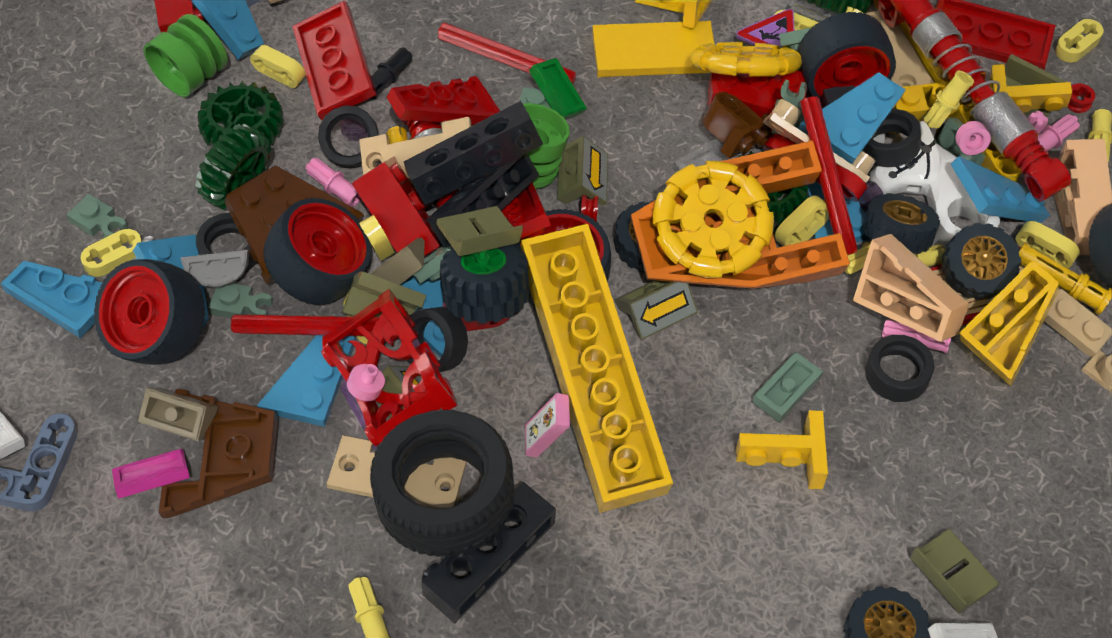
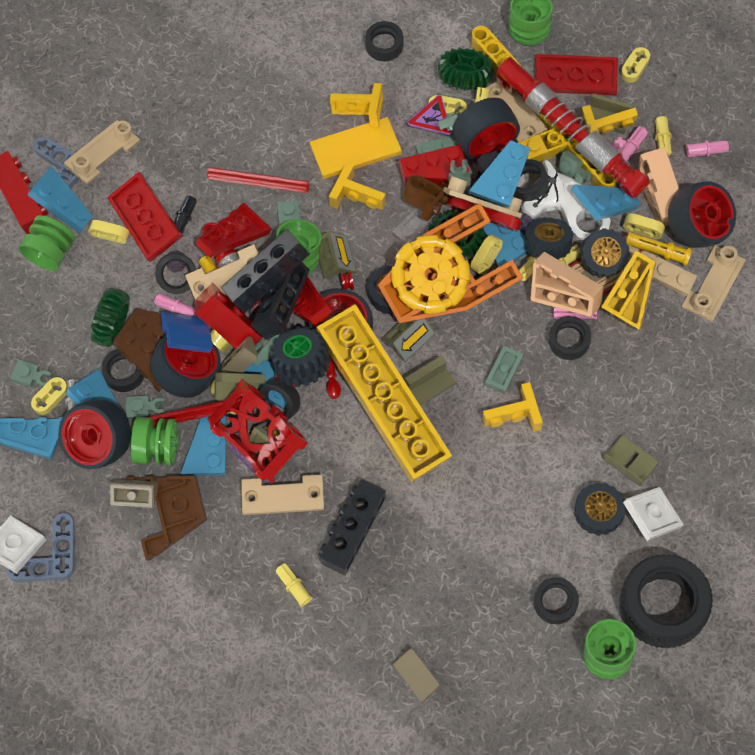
camera: 10 degrees left, 10 degrees up
(150, 473) = (131, 535): dark pink tile -> none
(218, 268) = (123, 391): light grey tile -> none
(233, 346) = (151, 441): none -> bright green wheel
(240, 106) = (89, 272): dark green gear -> none
(330, 206) = (186, 332): none -> blue slope
(365, 382) = (246, 443): bright pink tile -> none
(434, 437) = (304, 466): black tyre -> none
(492, 224) = (295, 321): olive piece -> none
(524, 345) = (333, 386): none -> red piece
(547, 425) = (364, 438): bright pink tile -> none
(557, 88) = (301, 198): green tile -> none
(627, 90) = (354, 191): none -> yellow bracket
(671, 372) = (430, 380): none -> olive panel
(756, 60) = (420, 146): yellow plate -> none
(829, 176) = (496, 222): red axle -> none
(948, 99) = (559, 144): light yellow axle -> none
(972, 138) = (581, 167): bright pink tile -> none
(1086, 93) = (649, 107): red bush -> none

